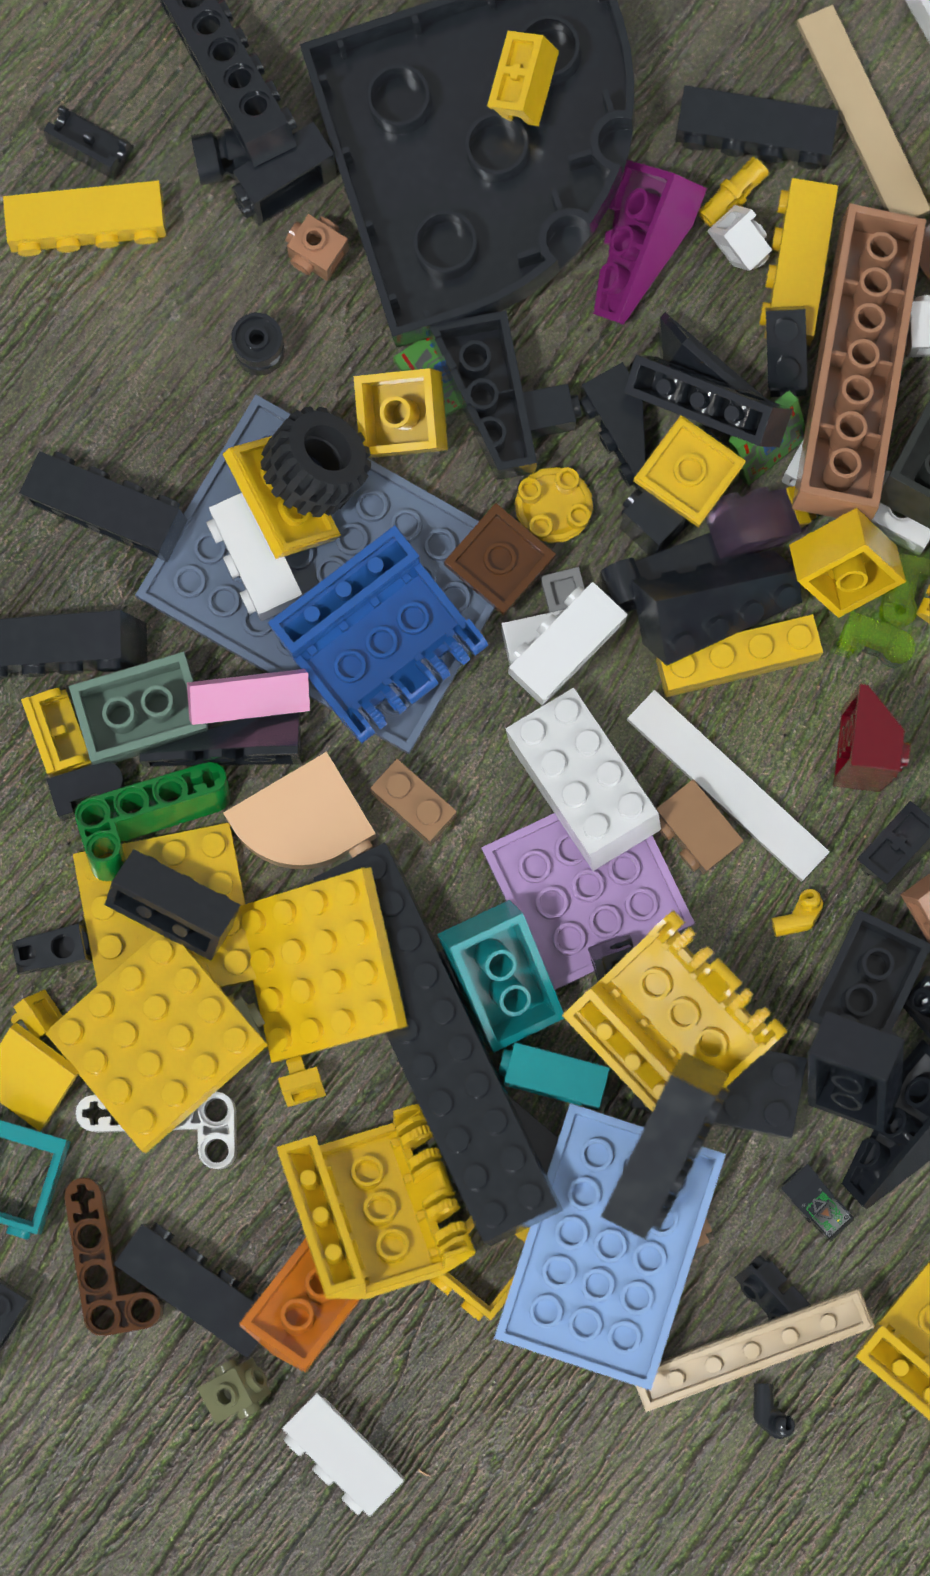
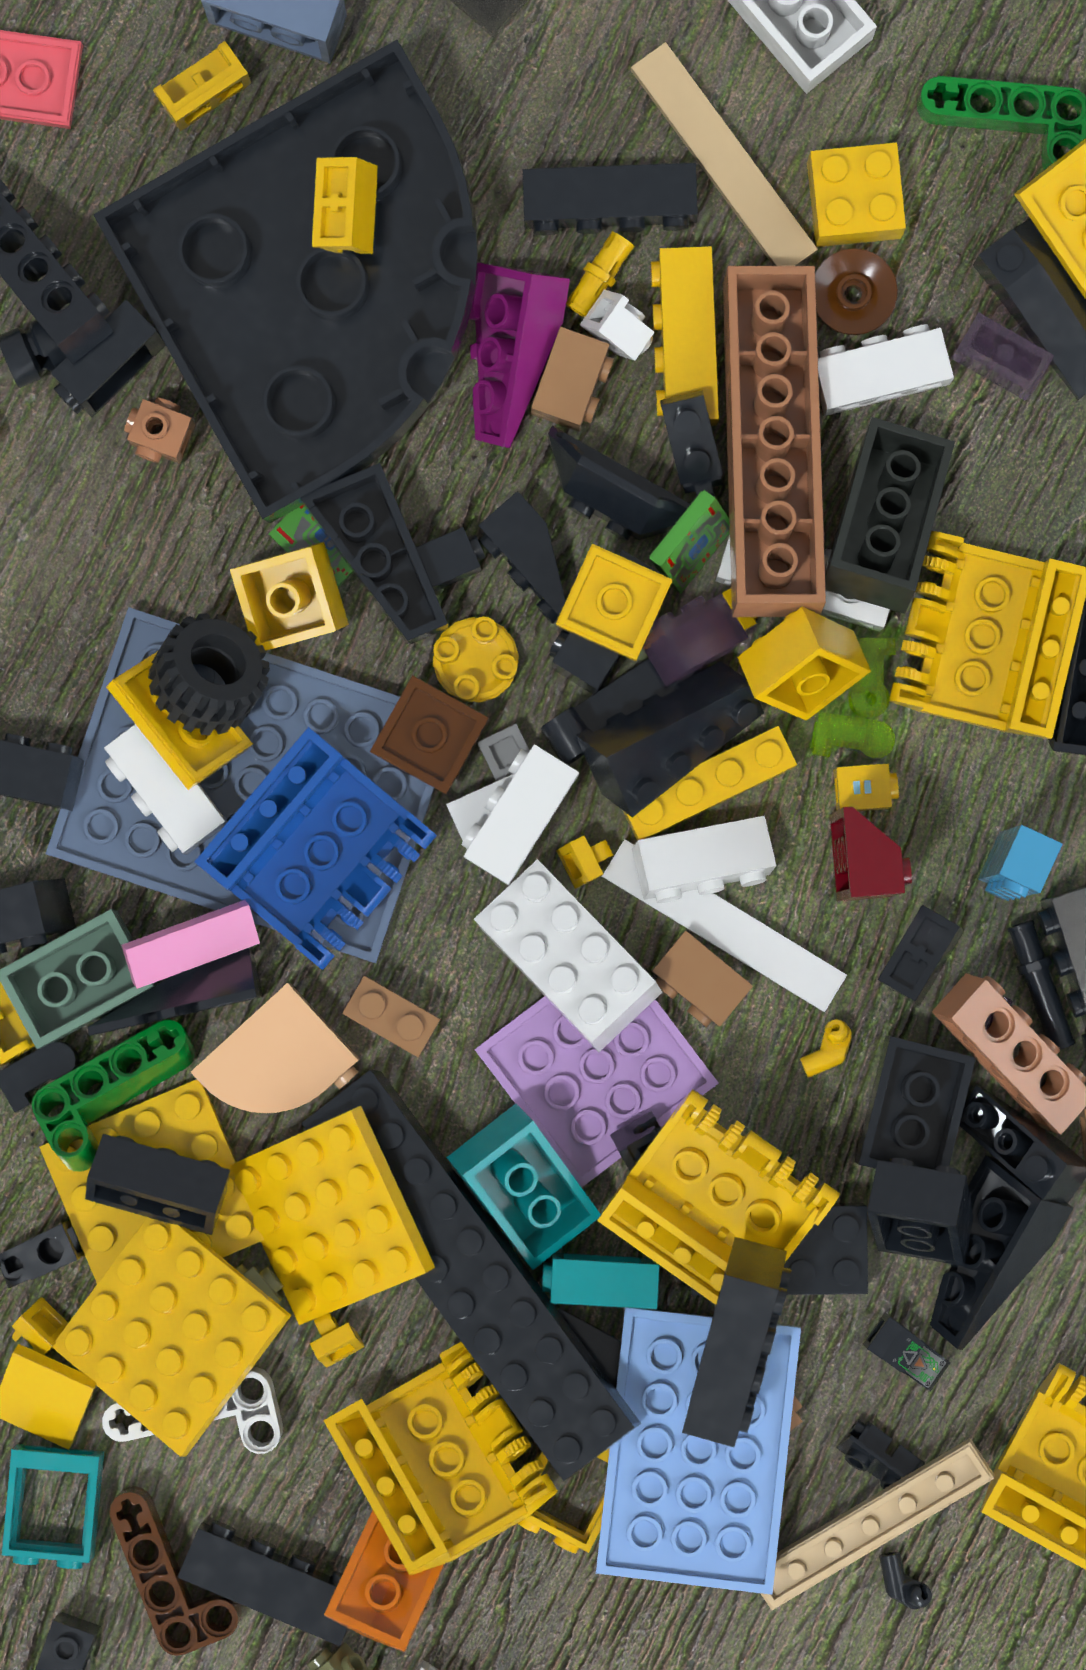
camera: 10 degrees left, 5 degrees up
(258, 343) = (119, 551): black wheel -> none
(613, 700) = (582, 860): none -> yellow tile
(689, 278) = (571, 379): none -> medium nougat brick
(708, 401) = (618, 522): black brick -> none
(722, 720) = (704, 859): none -> white brick
(885, 682) = (865, 787): none -> yellow brick

